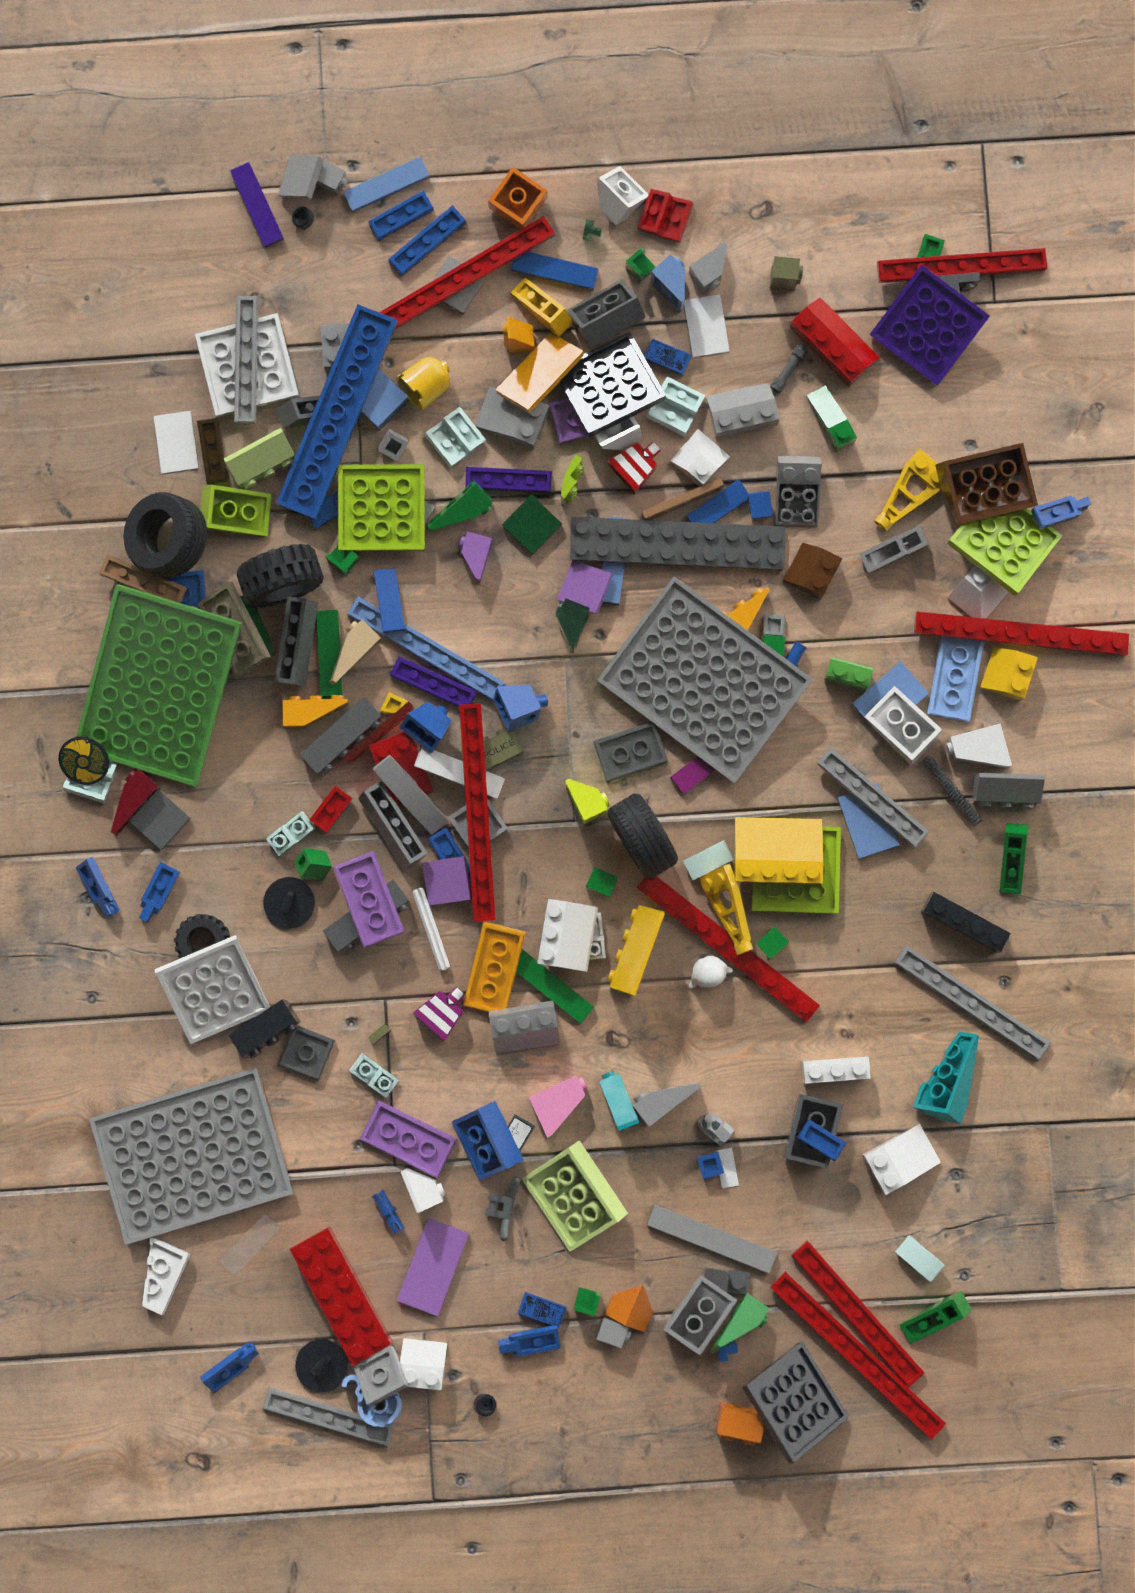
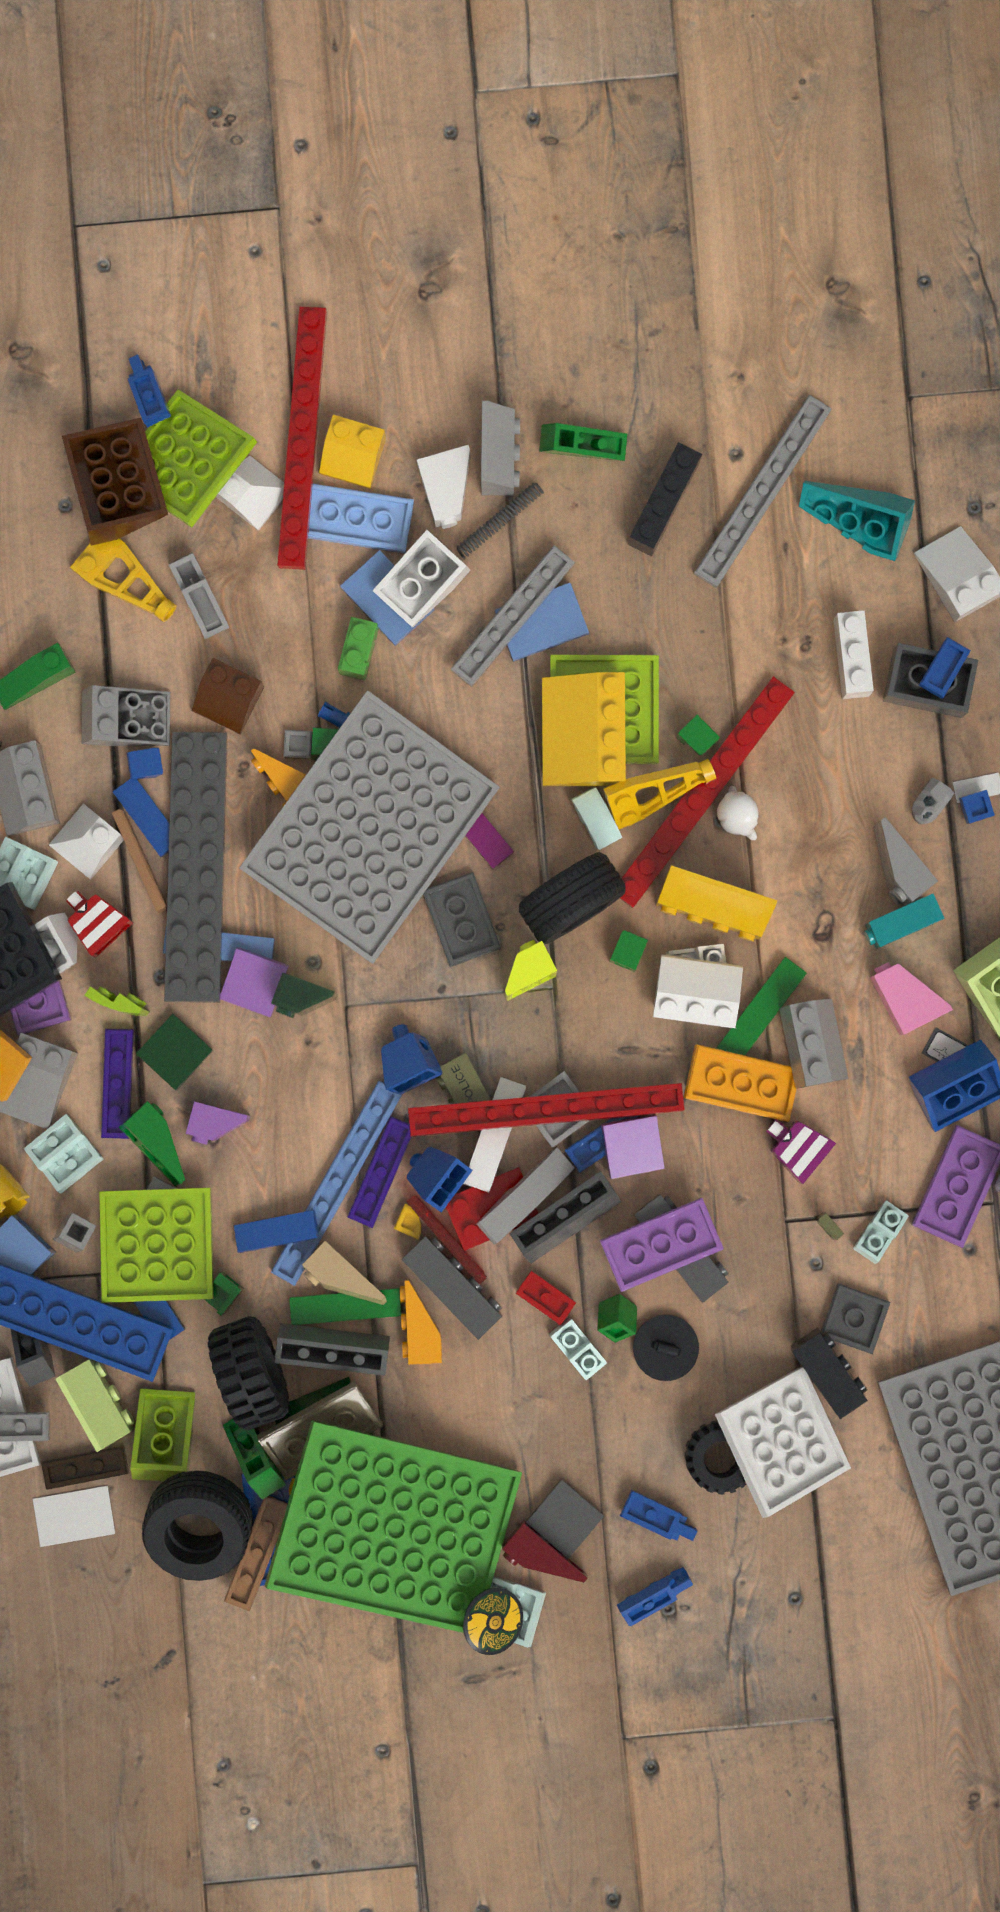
camera: 90 degrees left, 0 degrees up
(211, 579) = (253, 1460): none -> green slope
(431, 929) = (694, 1165): white axle -> none

